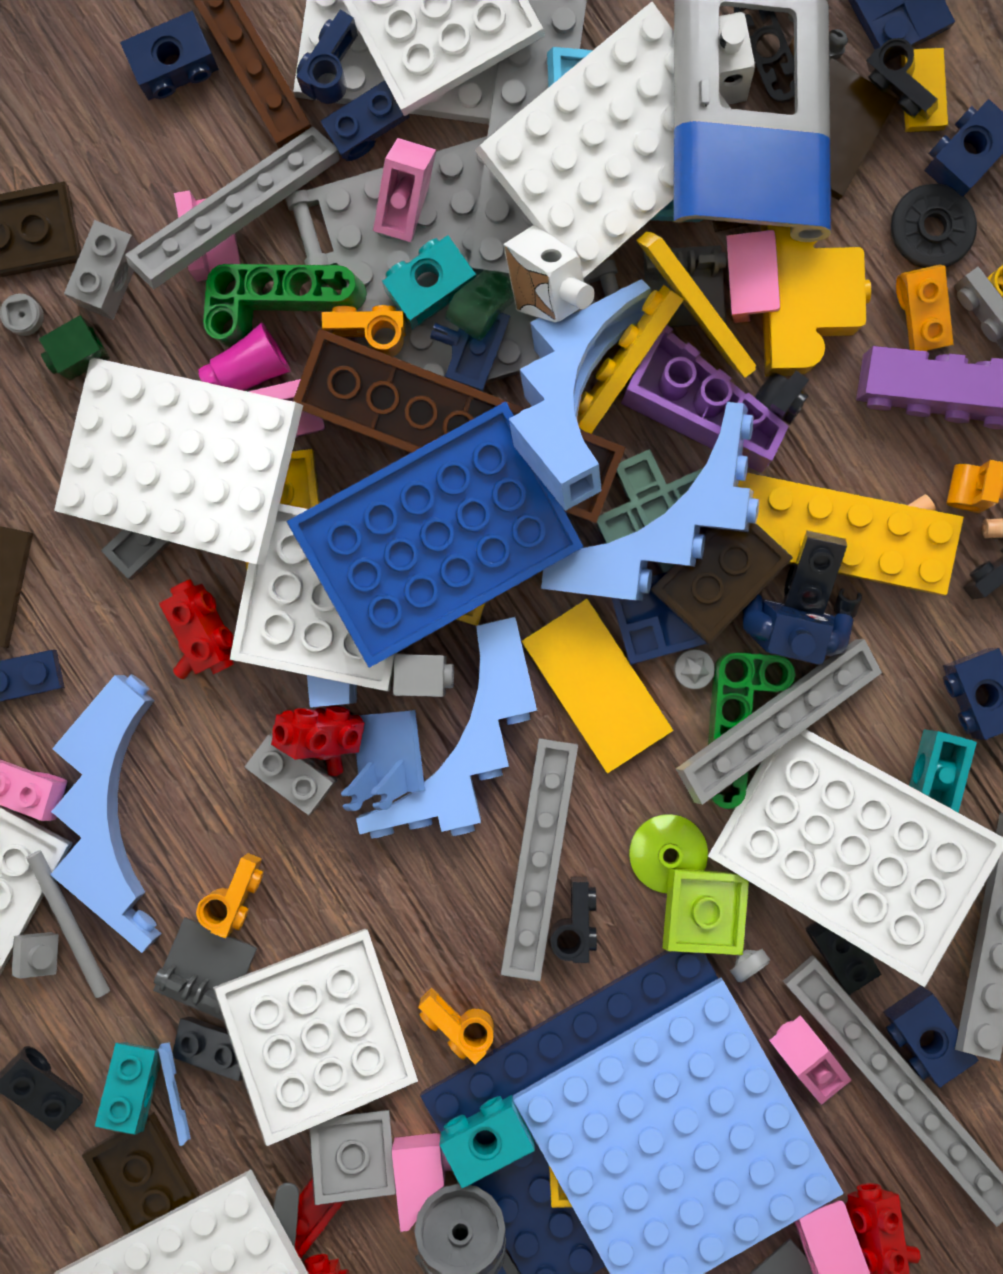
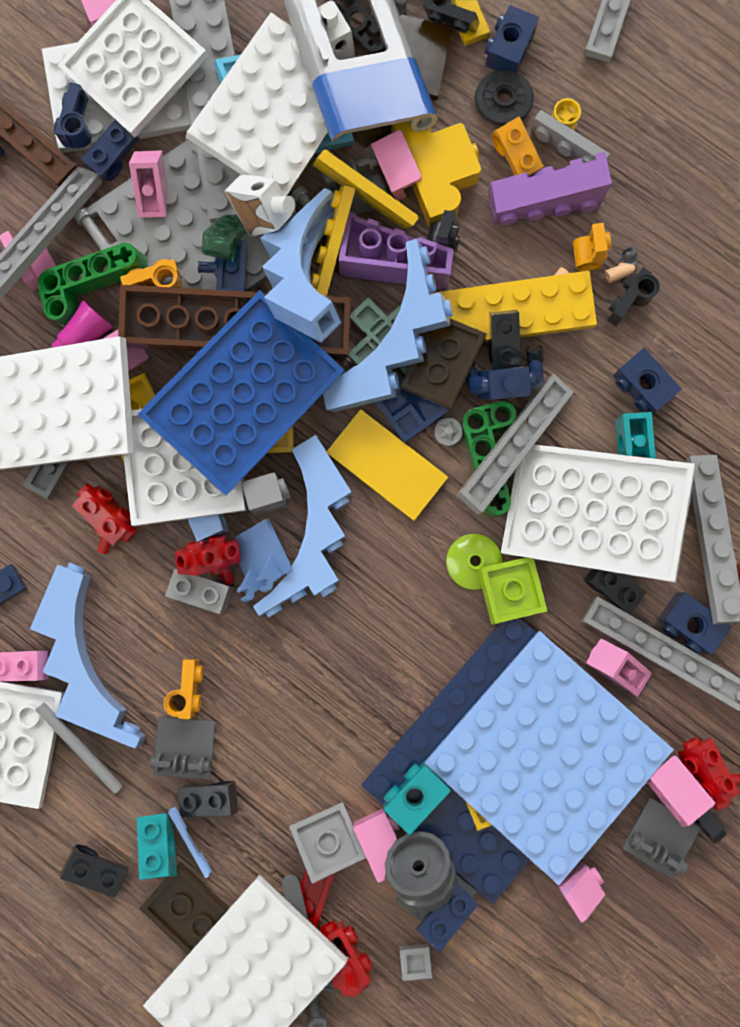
camera: 15 degrees left, 5 degrees down
(35, 955) = (62, 777): light grey plate -> none
(315, 1036) = (273, 766): white plate -> none
(423, 302) = (183, 251): teal brick -> none
(440, 1015) = (354, 723): light orange plate -> none
(539, 859) = (387, 594): light grey plate -> none
(582, 901) = (426, 612): black plate -> none
(749, 964) = (554, 616): light grey tile -> none

